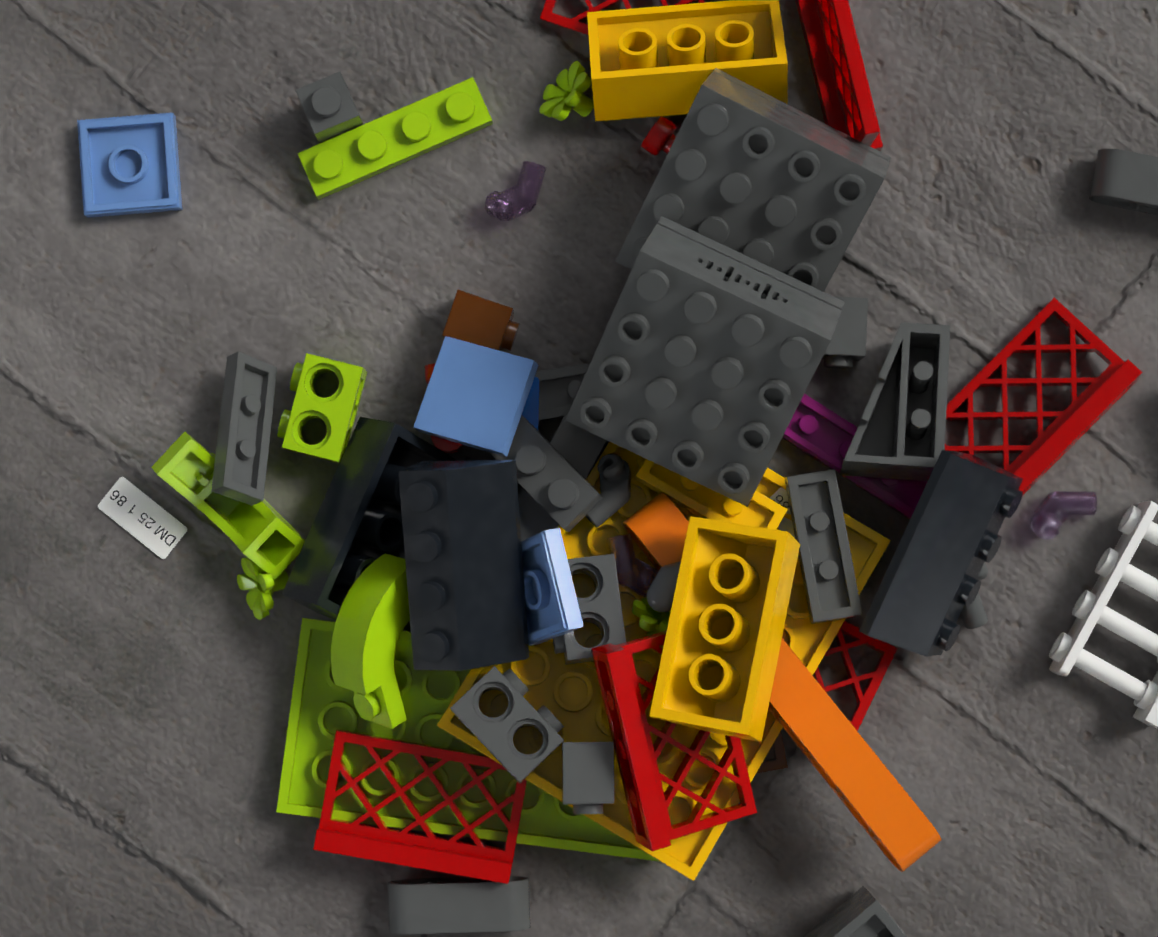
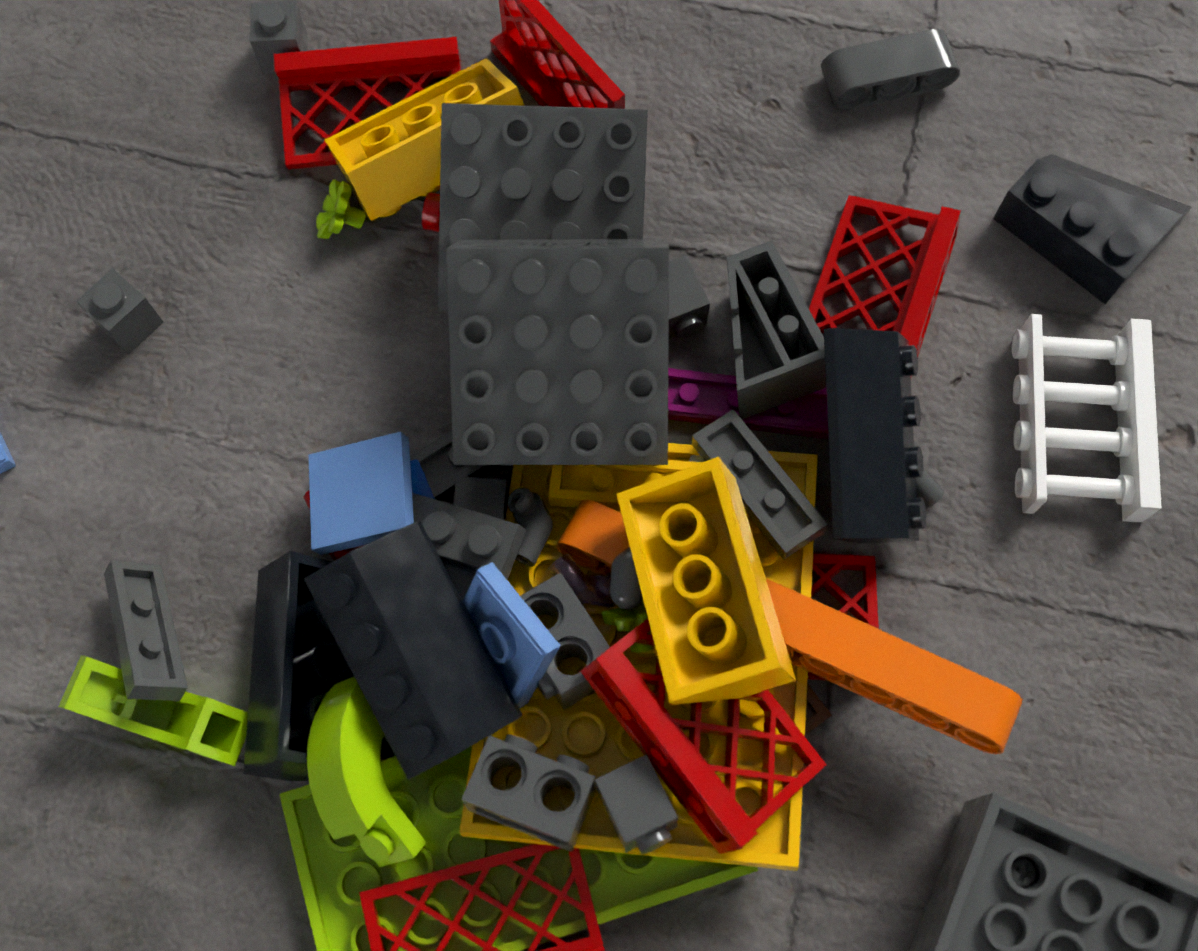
camera: 20 degrees left, 15 degrees down
(142, 517) = (79, 773): white sticker -> none
(260, 587) = (223, 782): lime plant -> none
(336, 411) = (232, 577): lime brick -> none
(395, 138) = (194, 317): lime plate -> none
(481, 322) = (337, 427): reddish brown brick -> none
(519, 198) = (330, 317): clear purple arm -> none
(1057, 507) = (950, 364): clear purple arm -> none

